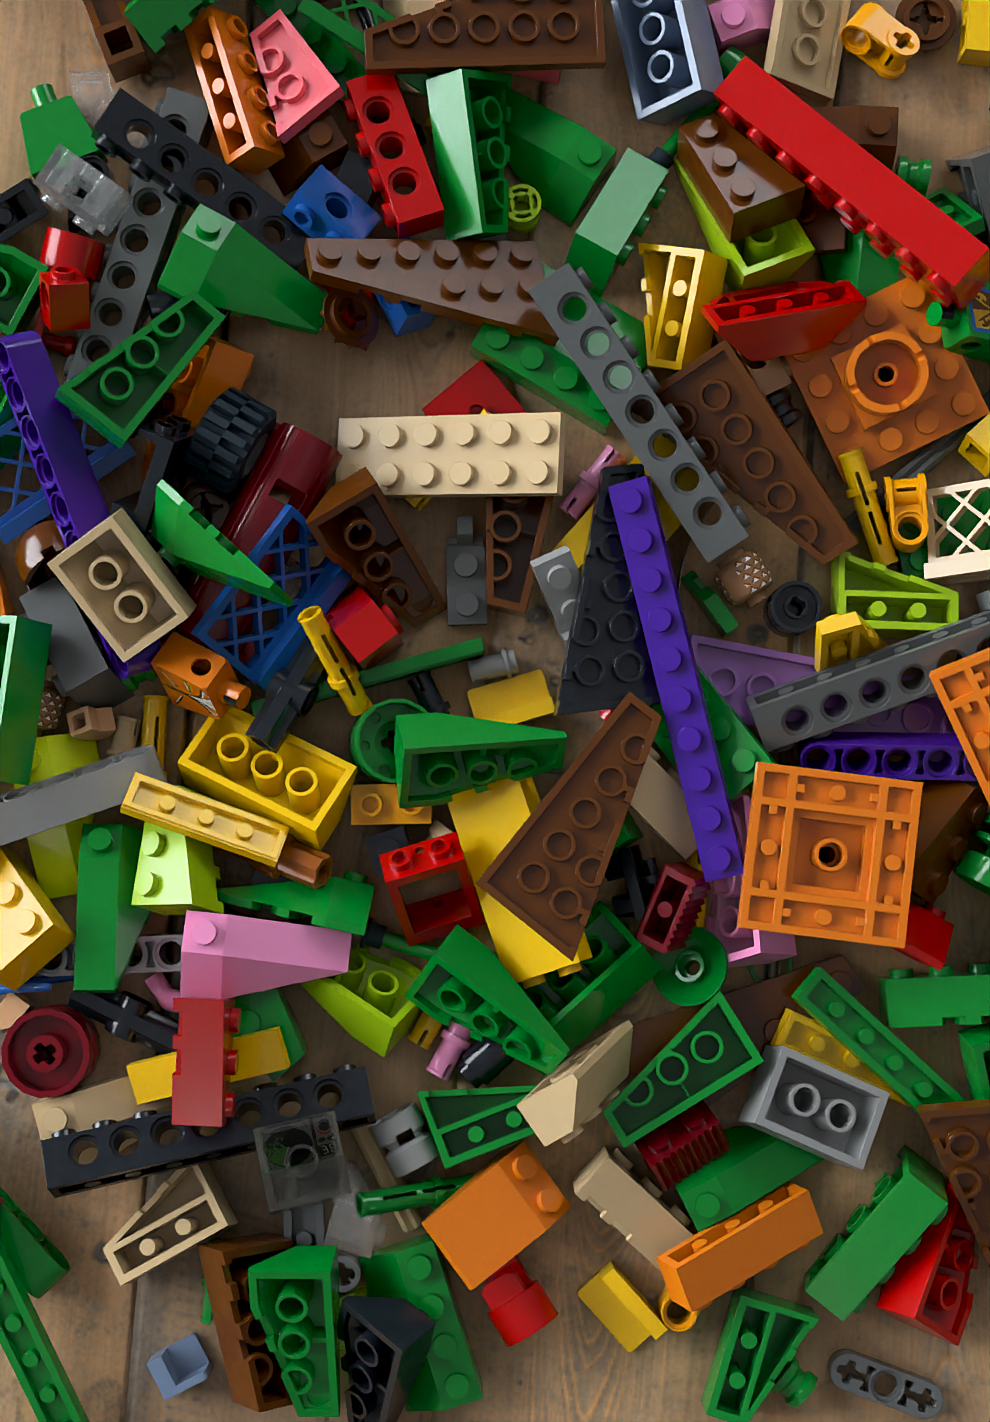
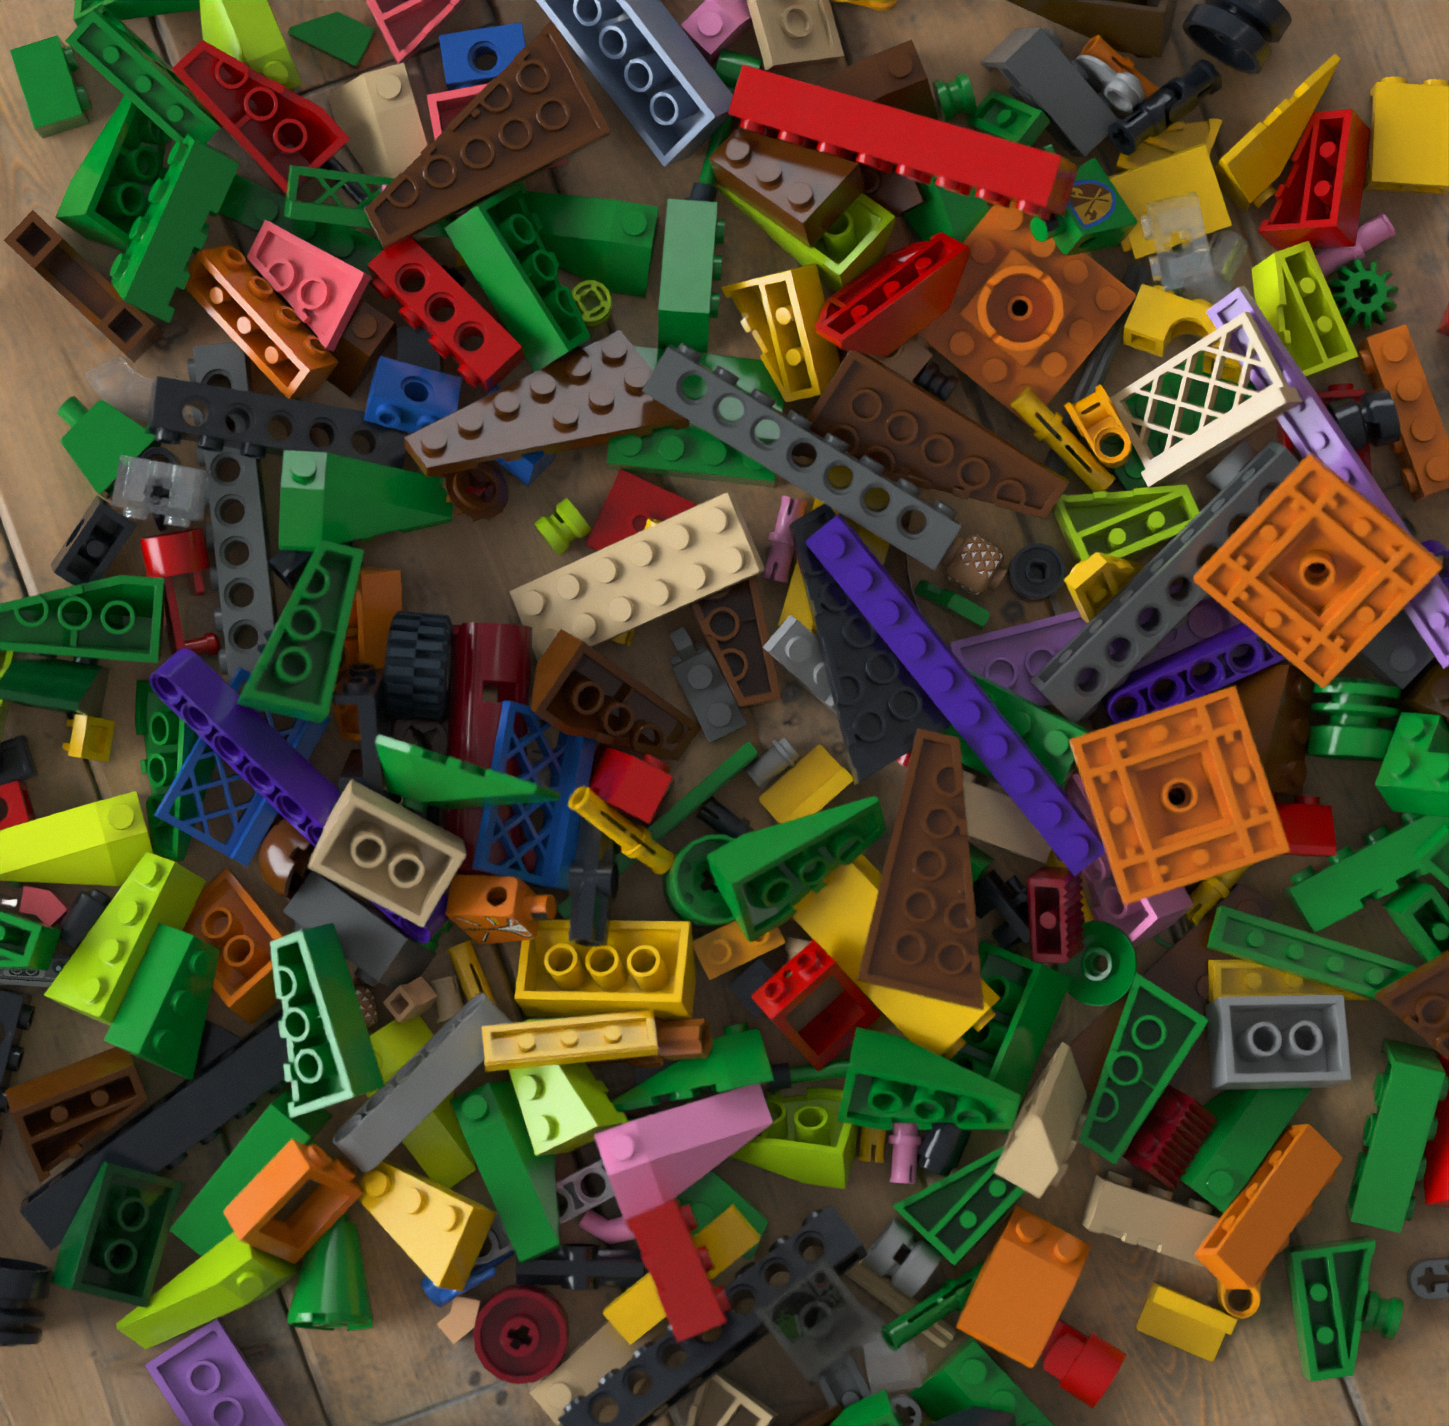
camera: 25 degrees left, 0 degrees up
(64, 299) = (194, 603): red brick -> none
(409, 384) = (562, 526): none -> lime wheel
(816, 950) = (1211, 891): none -> yellow pin

